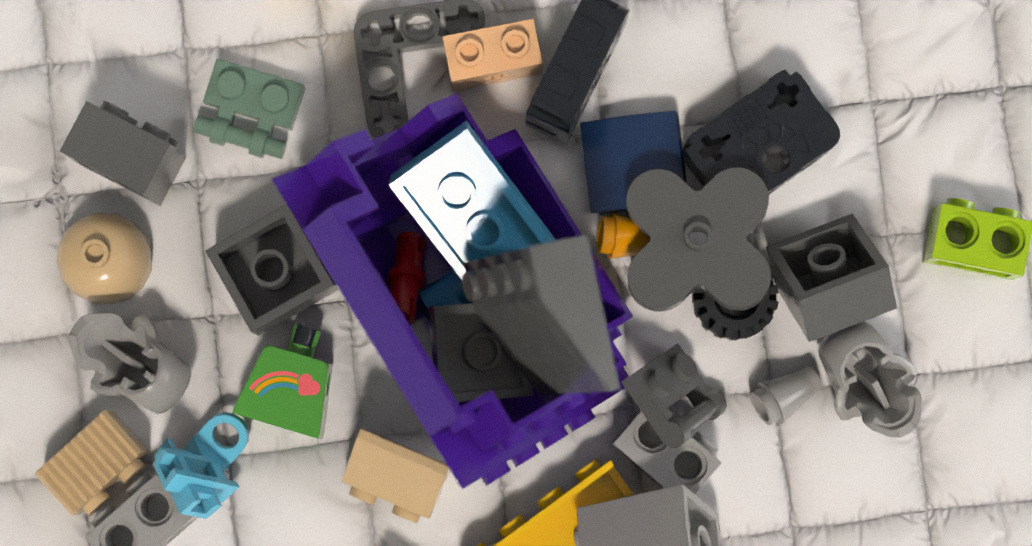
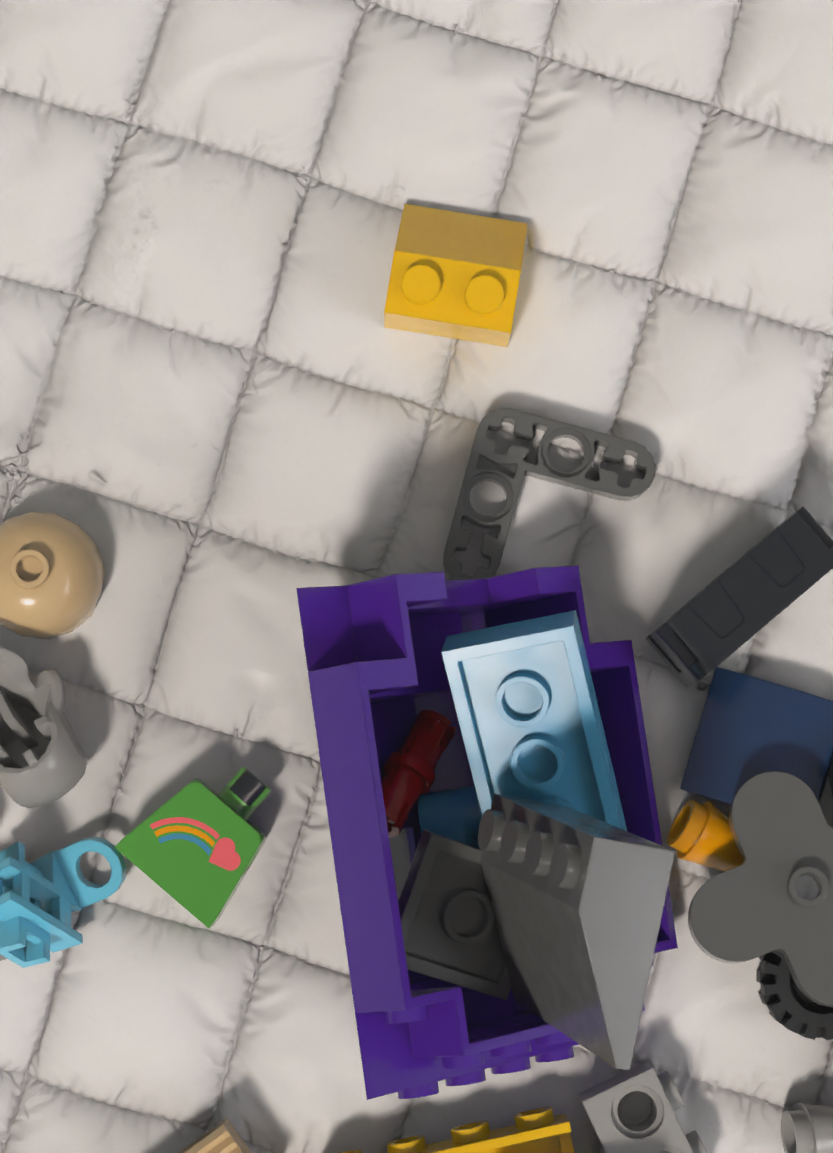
camera: 20 degrees right, 0 degrees up
(118, 150) = (118, 453): dark grey brick -> none
(252, 95) = (314, 448): sand green plate -> none
(271, 270) = (242, 686): dark grey brick -> none
(395, 475) = (288, 1019): tan slope -> none
(493, 54) = (644, 532): light nougat brick -> none
(663, 384) = (677, 1054): dark grey plate -> none

